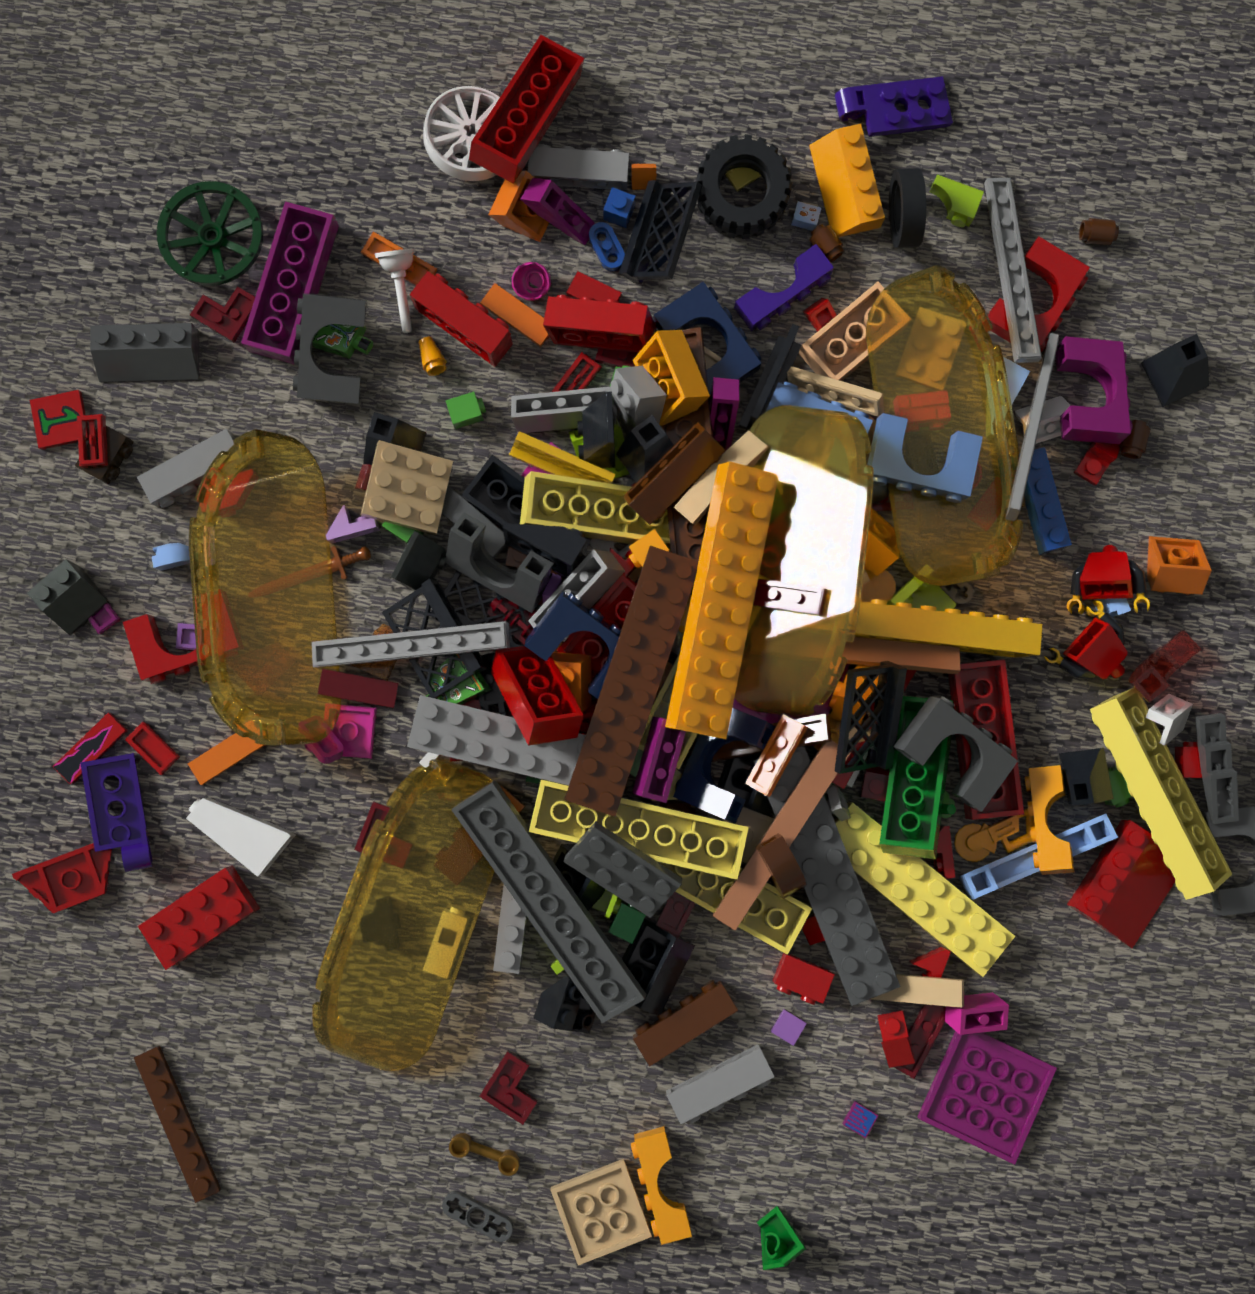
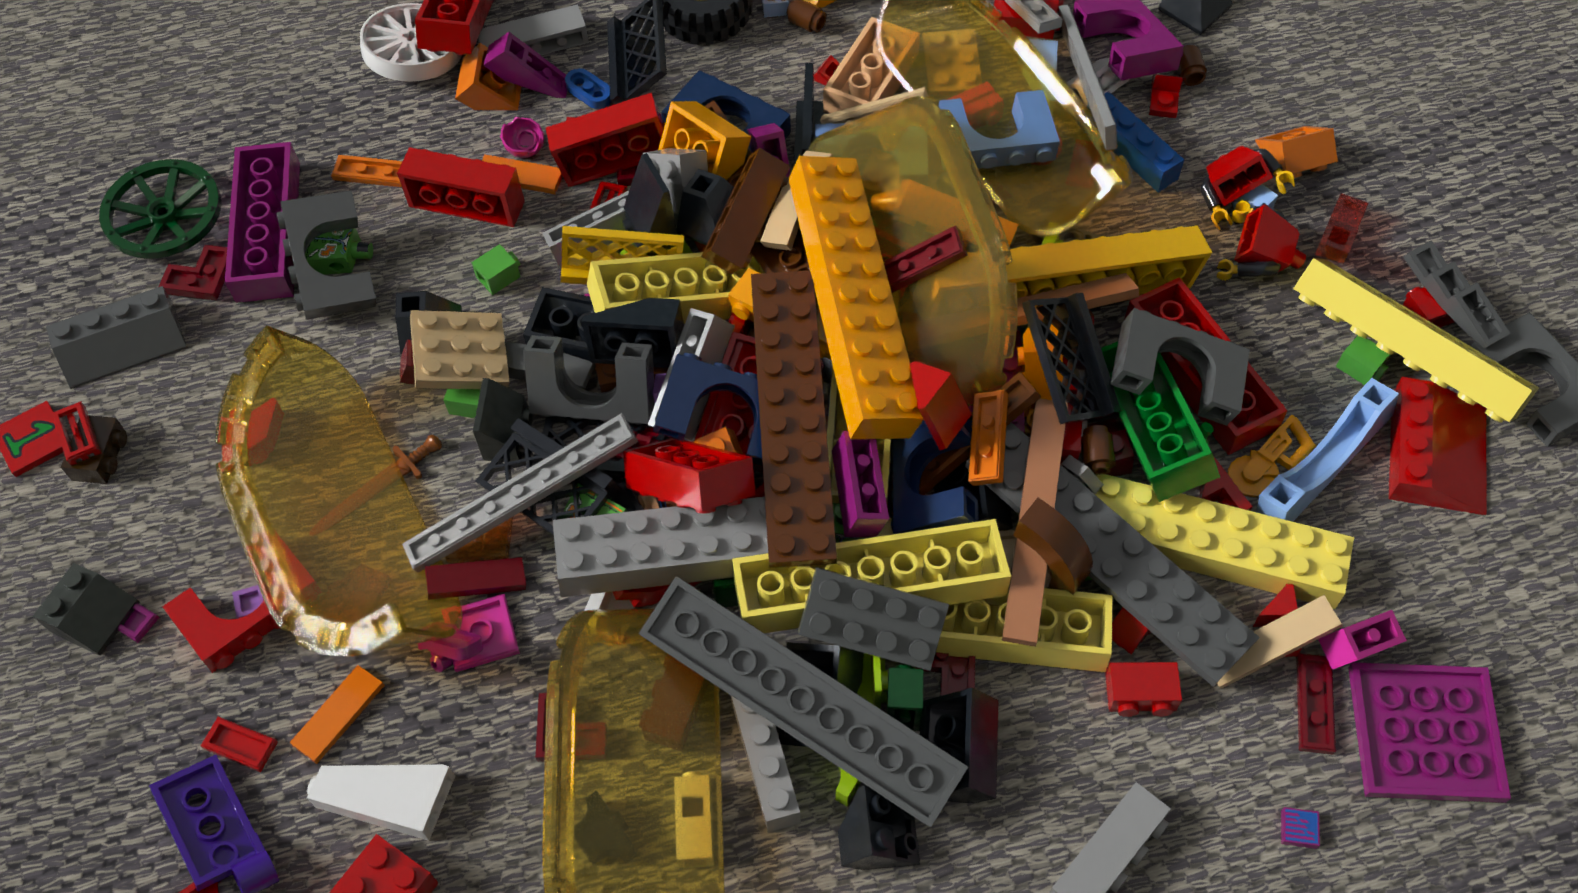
camera: 20 degrees left, 25 degrees down
(90, 747) = (165, 759): tile -> none
(170, 556) = (205, 526): light blue brick -> none
(184, 471) = (187, 438): light grey brick -> none
(344, 528) = (403, 424): lavender slope -> none
(396, 263) = (372, 161): white piece -> none
(432, 358) = (442, 237): light orange cone -> none
(619, 207) = (587, 51): blue brick -> none
(642, 174) = (597, 21): orange slope -> none
(685, 1022) = (1029, 797): reddish brown brick -> none
(742, 727) = (939, 402): none -> red slope
(759, 306) = (801, 40): dark purple arch -> none
(788, 1027) = (1156, 754): medium lavender tile -> none
(859, 790) = (1098, 449): none -> reddish brown brick
(896, 1039) = (1289, 712): red slope -> none
(1046, 788) = (1341, 434): light orange arch -> none
(1086, 776) = (1328, 357): black slope -> none
(1172, 714) = (1386, 270): white panel -> none

